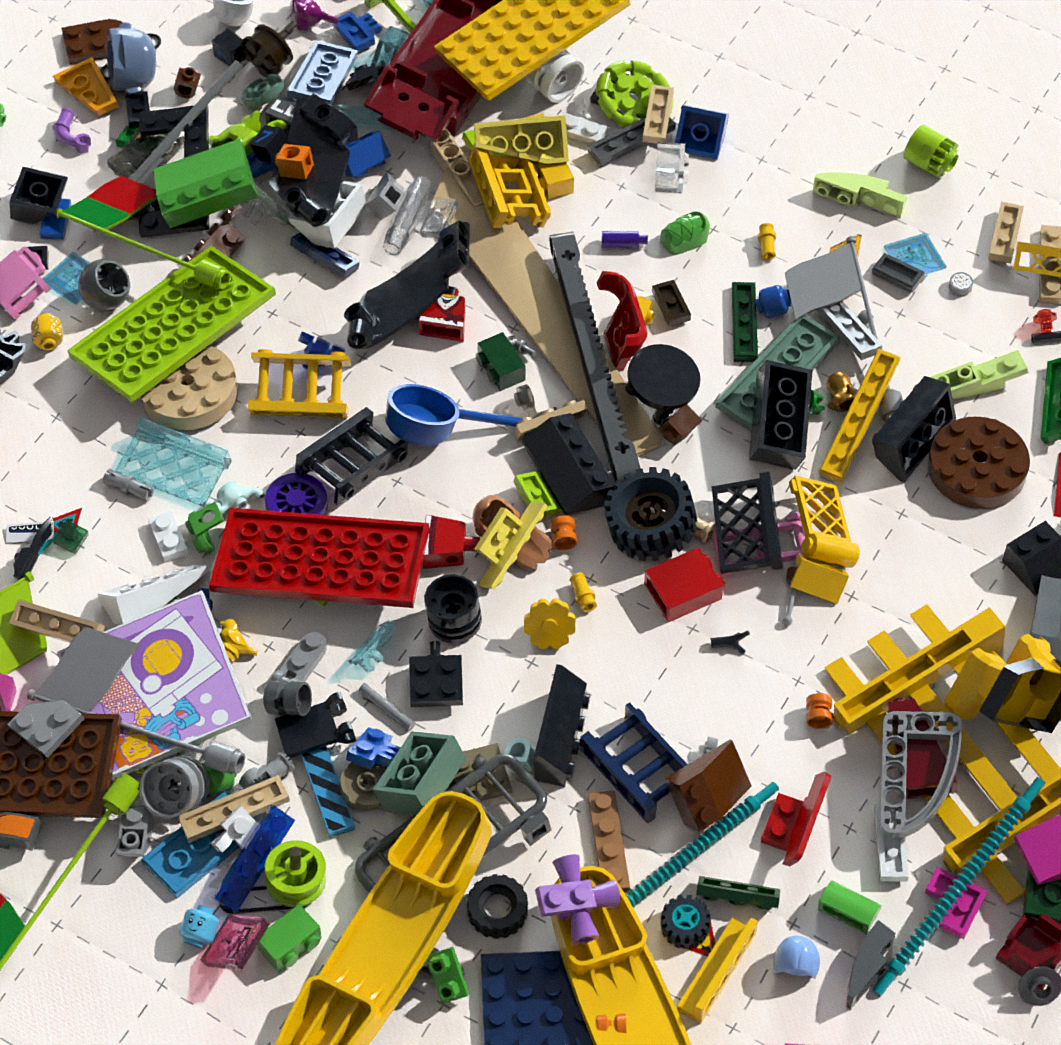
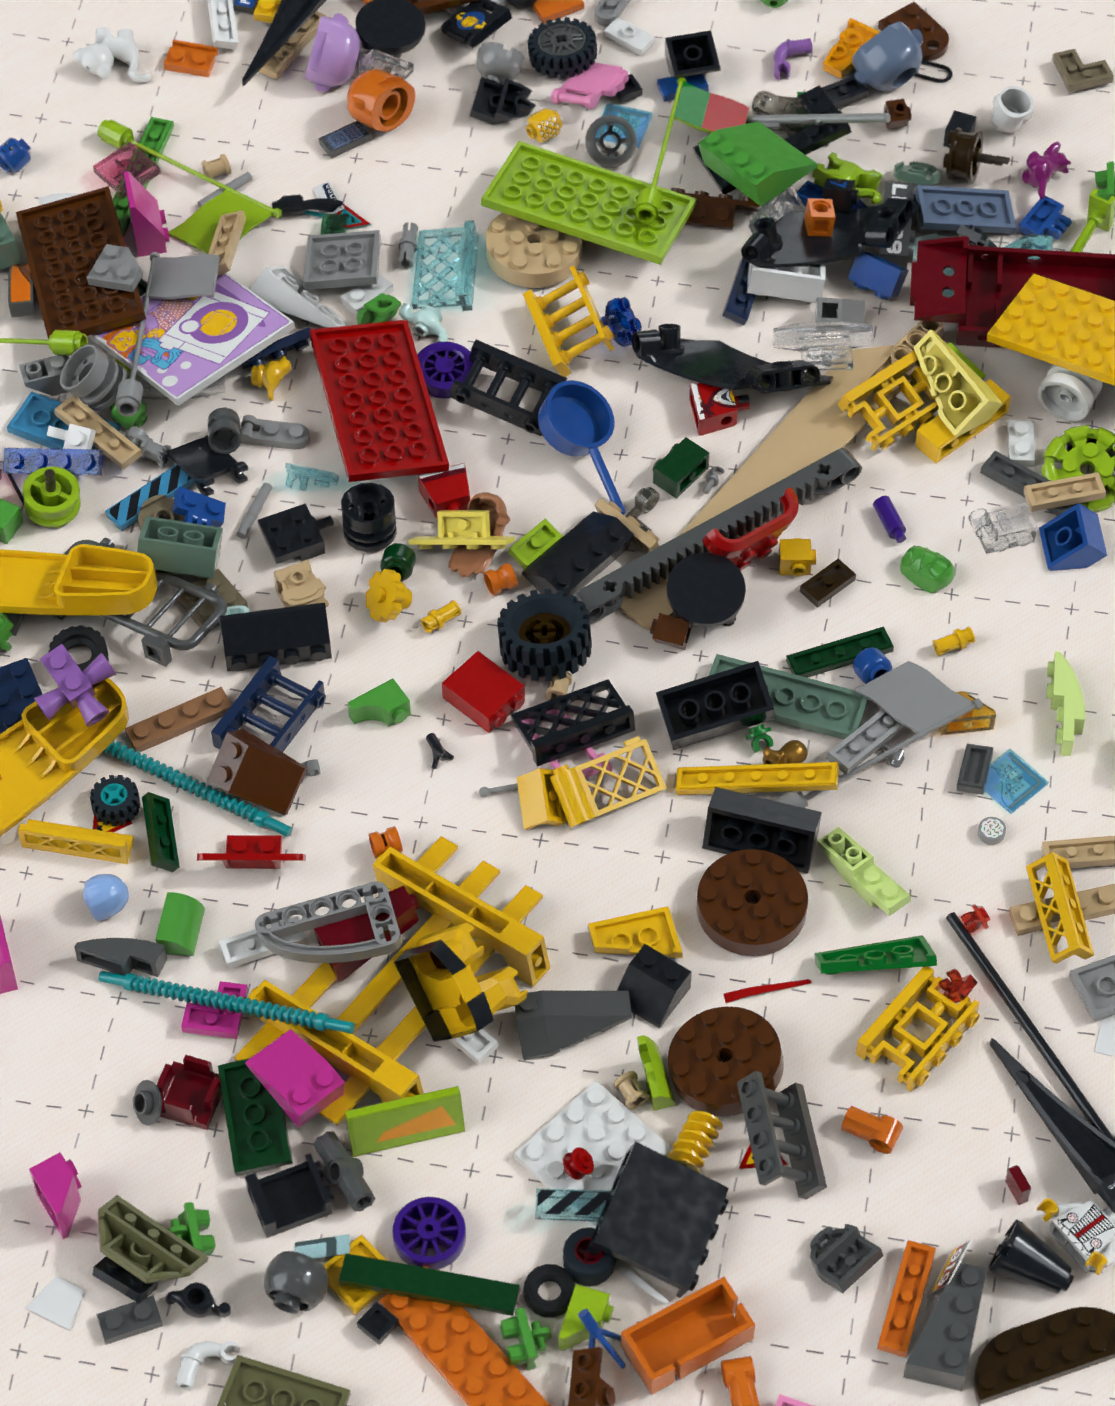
camera: 70 degrees right, 0 degrees up
(124, 539) = (342, 260): none -> light grey plate
(508, 605) = (400, 559): none -> dark green head
(512, 691) = (299, 586): none -> tan piece
(665, 664) = (382, 703): none -> bright green arch
(981, 553) = (632, 931): none -> yellow wing

